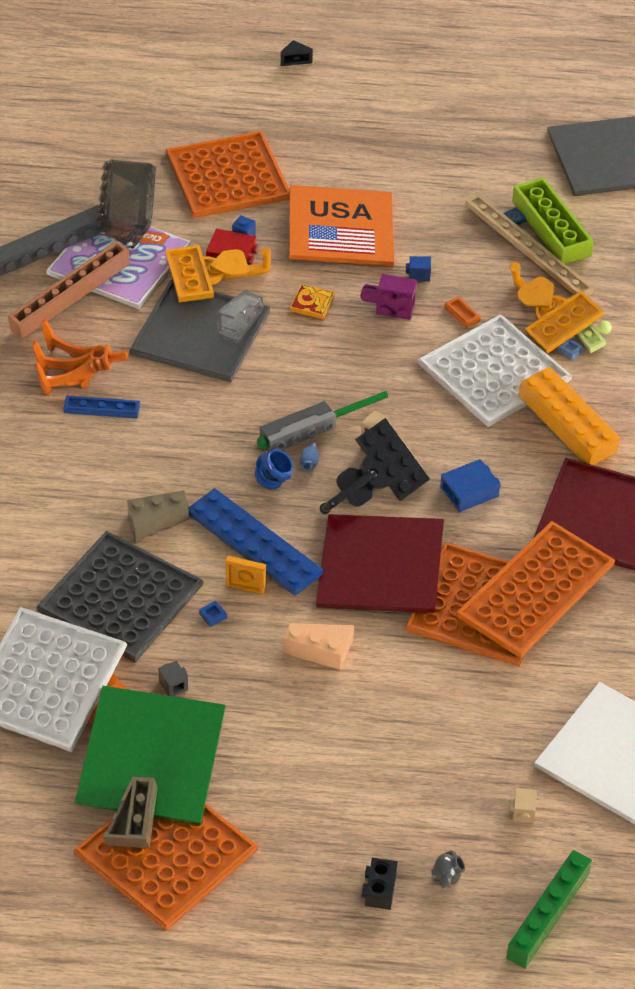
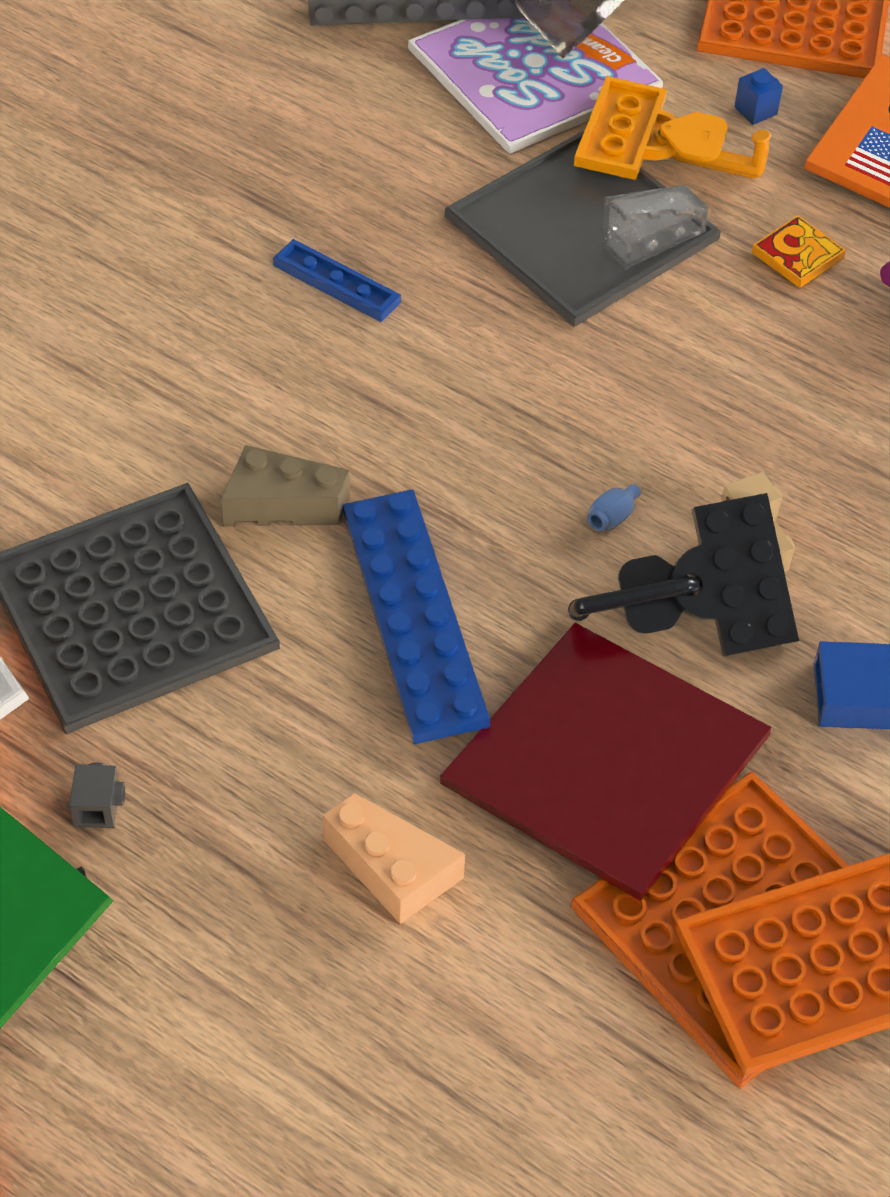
camera: 30 degrees right, 5 degrees up
(69, 289) = (412, 78): nougat brick -> none
(80, 369) = (341, 205): orange piece -> none
(213, 613) = (250, 709): blue plate -> none
(228, 240) = (722, 100): red brick -> none
(245, 575) = (345, 666): light orange tile -> none
(273, 468) = (528, 500): blue helmet -> none
(307, 423) = (646, 448): piece -> none

